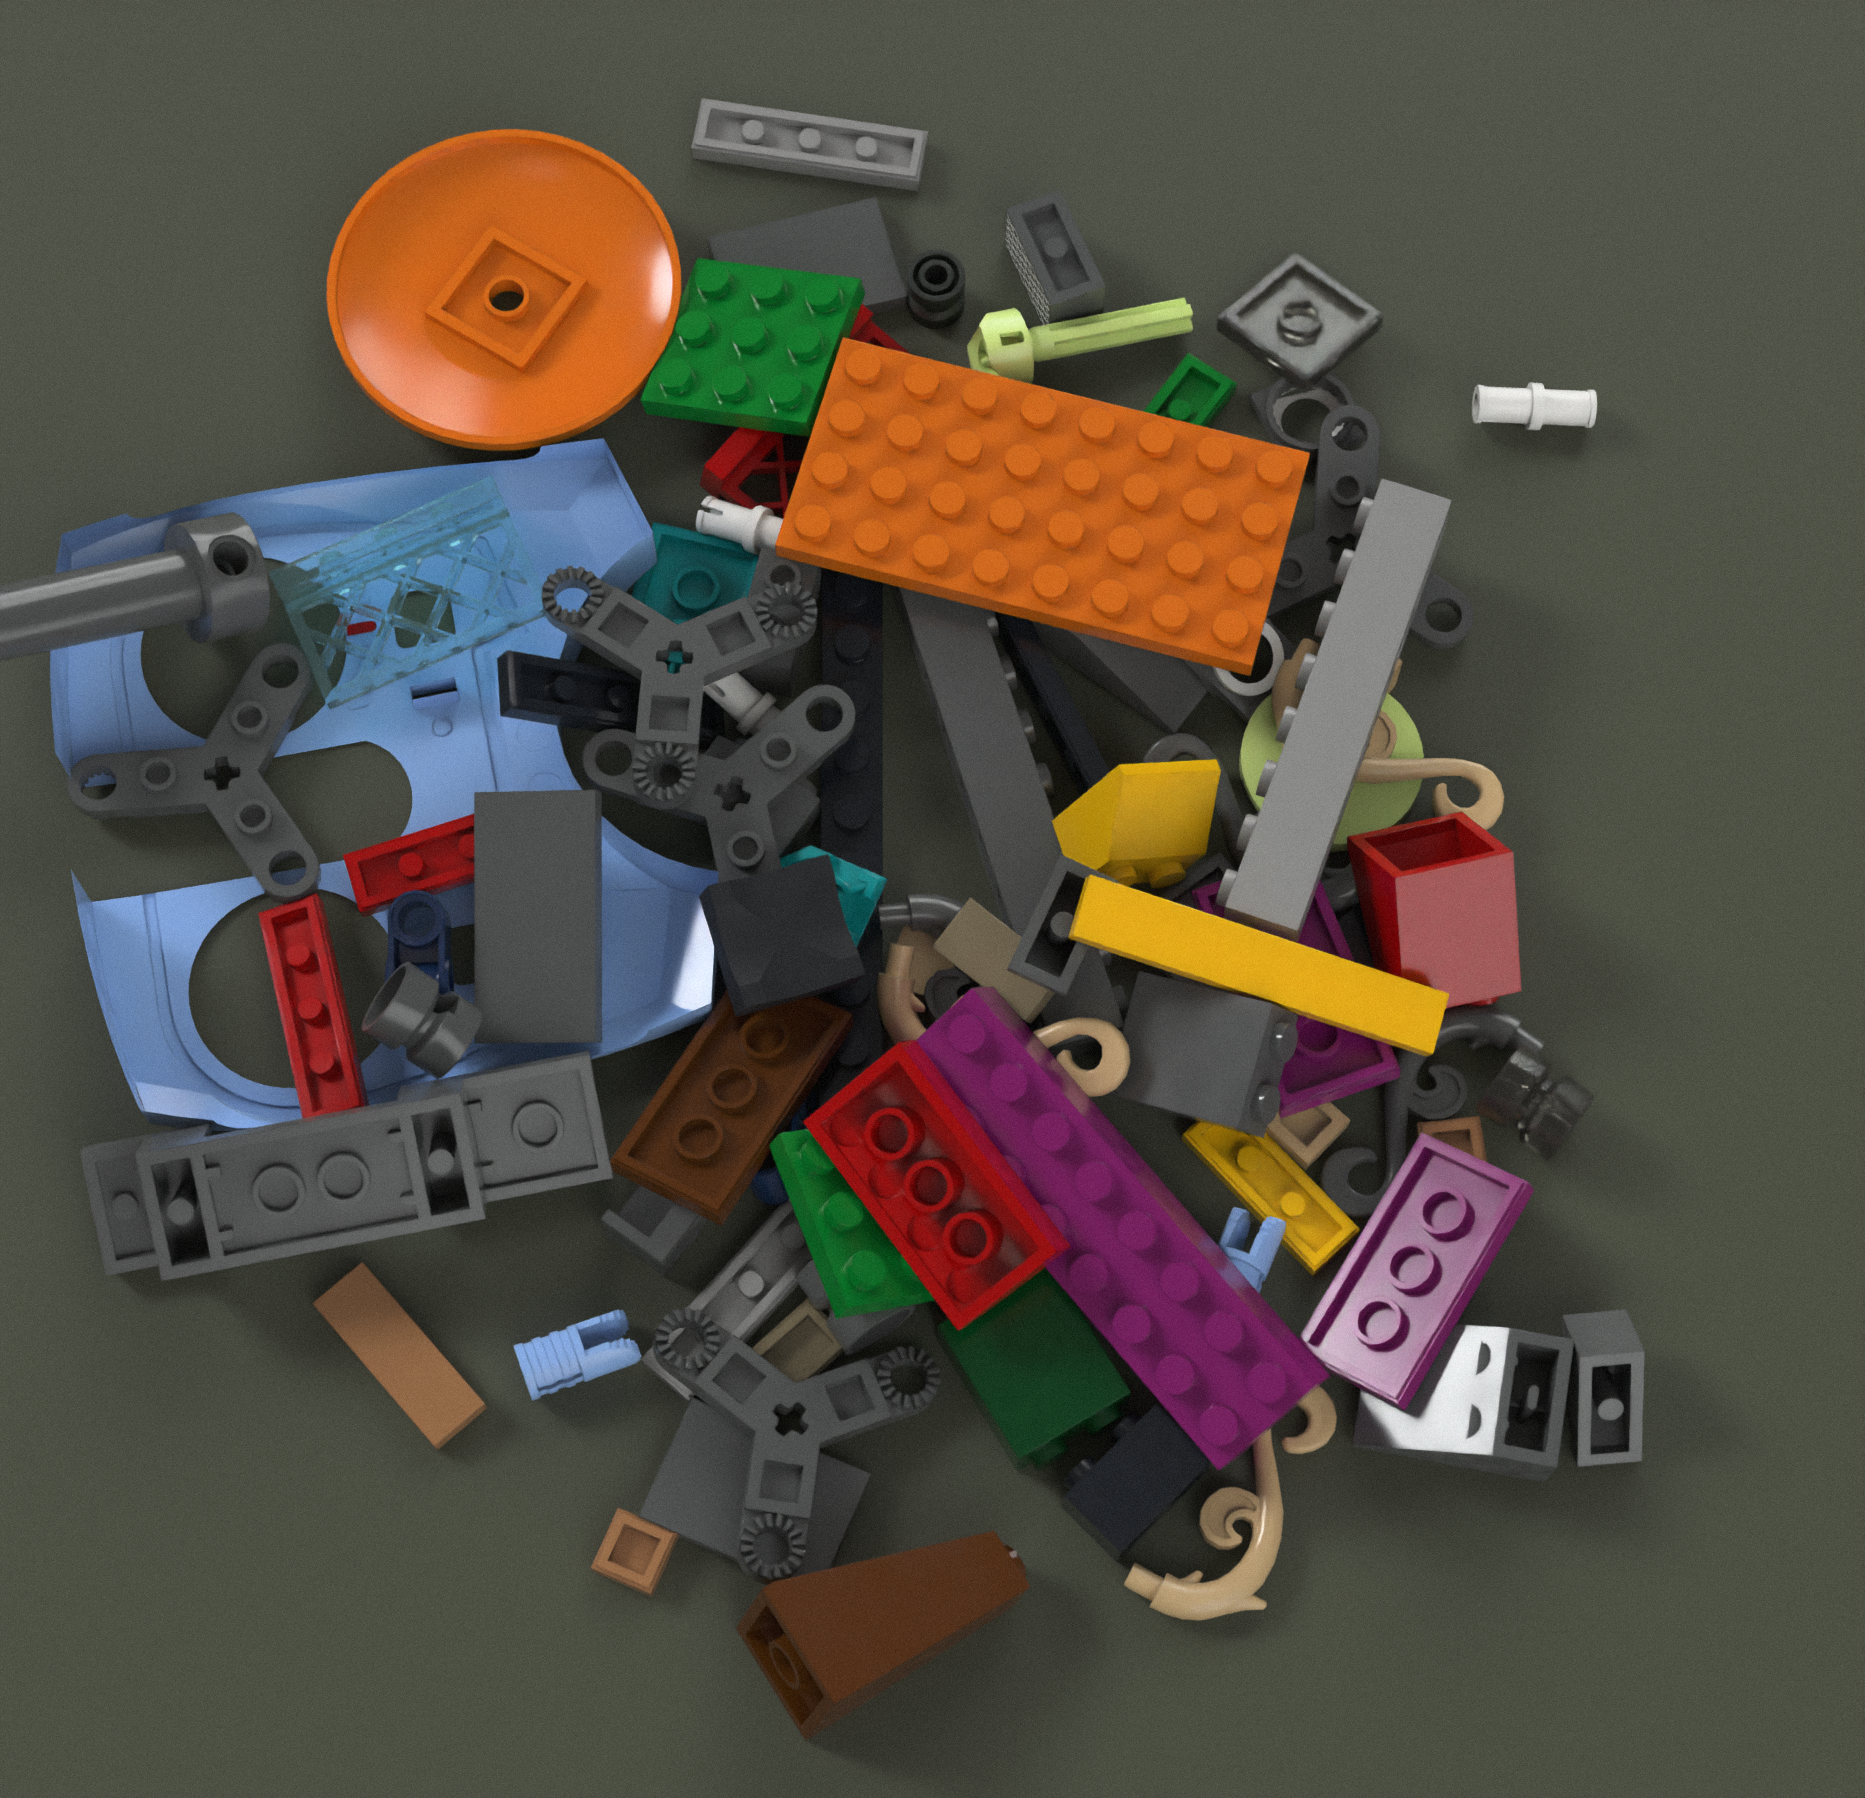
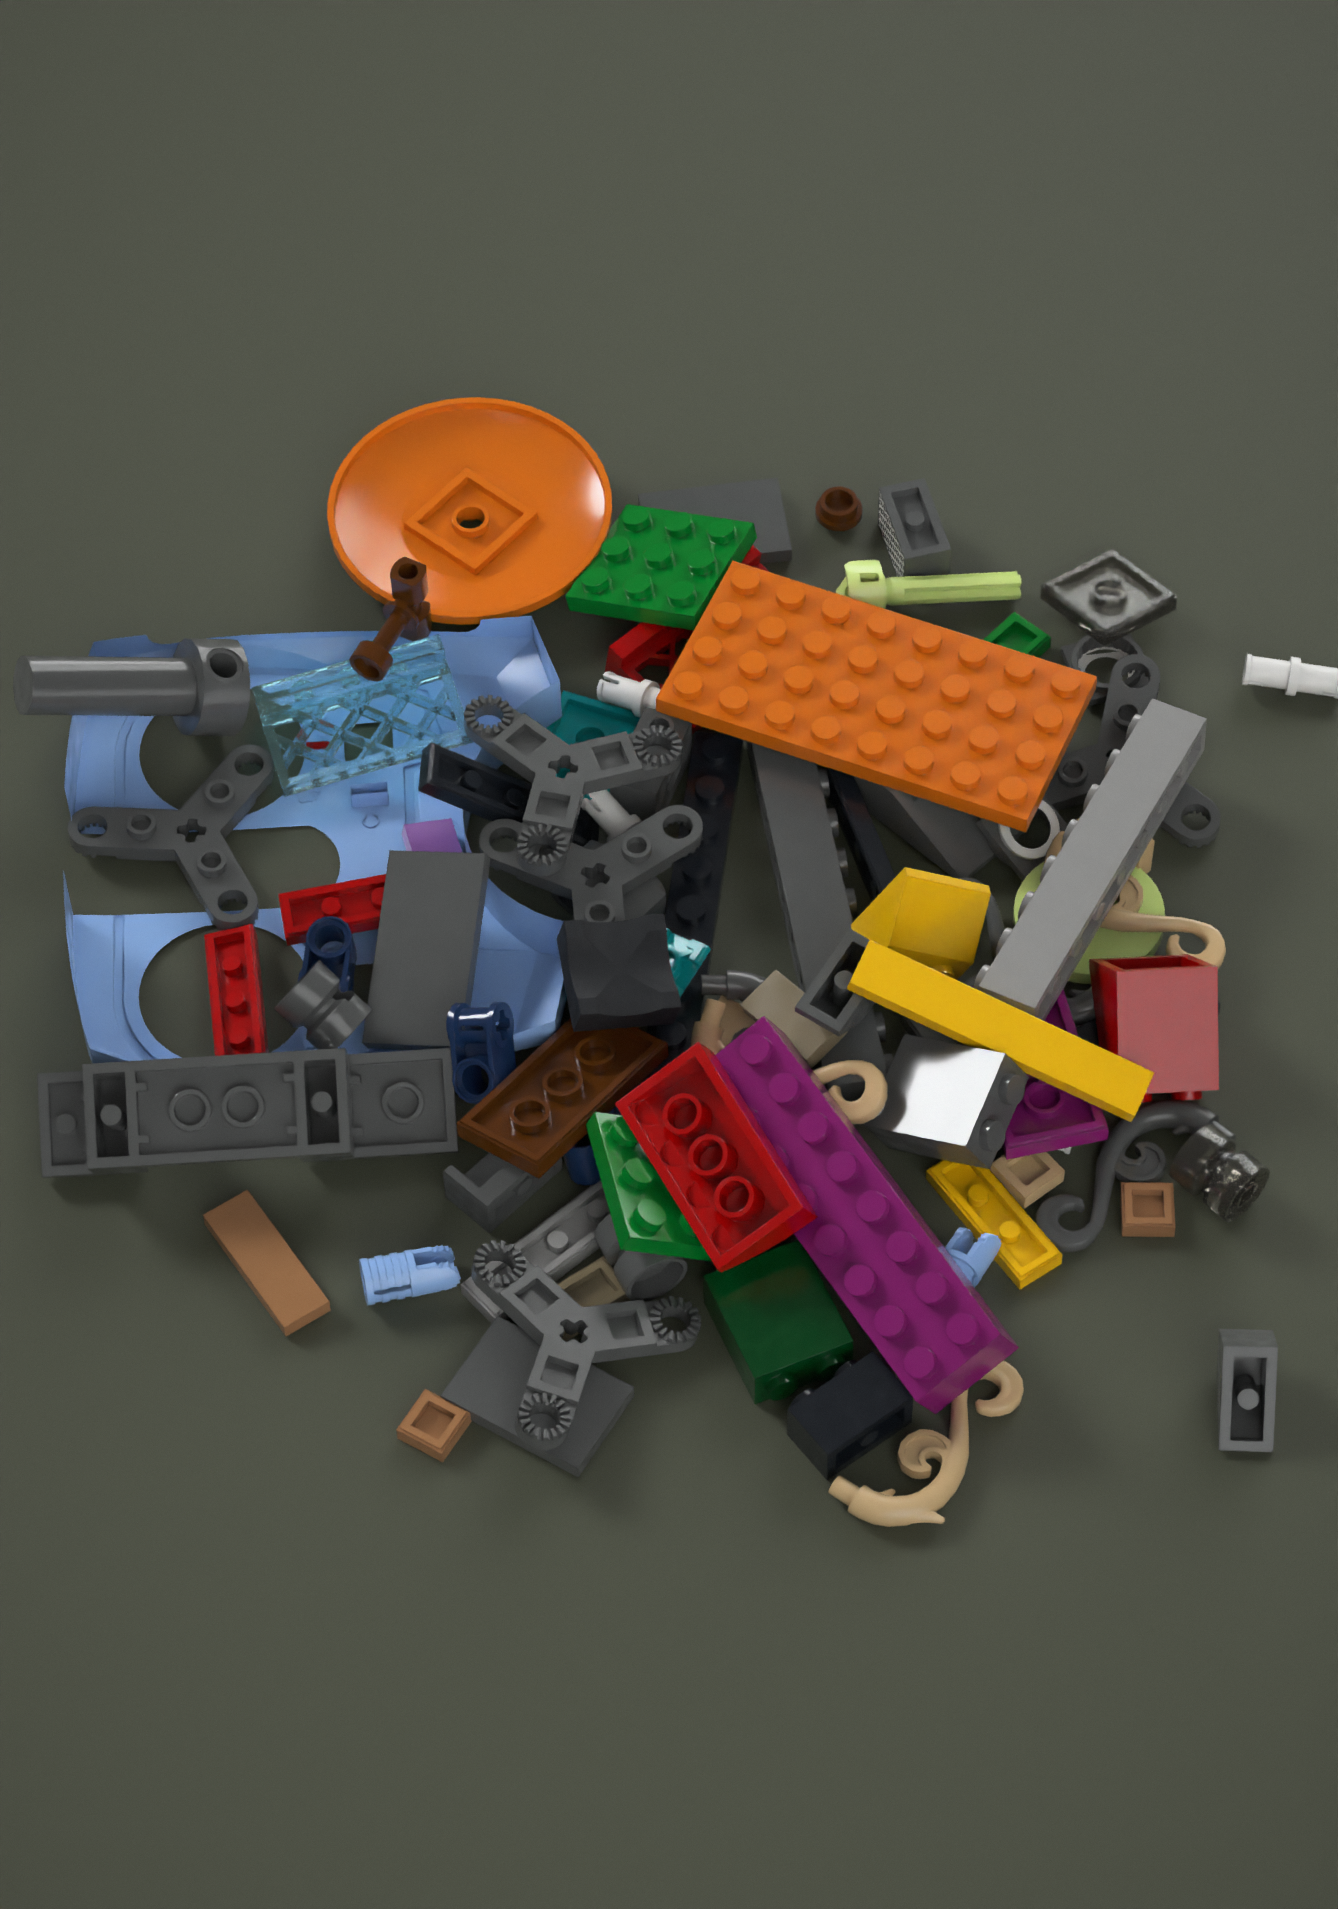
camera: 10 degrees right, 15 degrees down
(452, 454) = (406, 617): none -> reddish brown bar
(524, 760) = (431, 836): none -> medium lavender tile
(624, 1053) = (480, 1046): none -> dark blue piece
(809, 144) = (731, 438): light grey tile -> none
(865, 1625) = (618, 1487): reddish brown slope -> none
(936, 303) = (815, 546): pearl dark grey wheel -> none
(956, 230) = (838, 509): none -> reddish brown plate
(1414, 1269) = (1101, 1280): tile -> none
(1483, 1406) = (1131, 1380): dark grey slope -> none

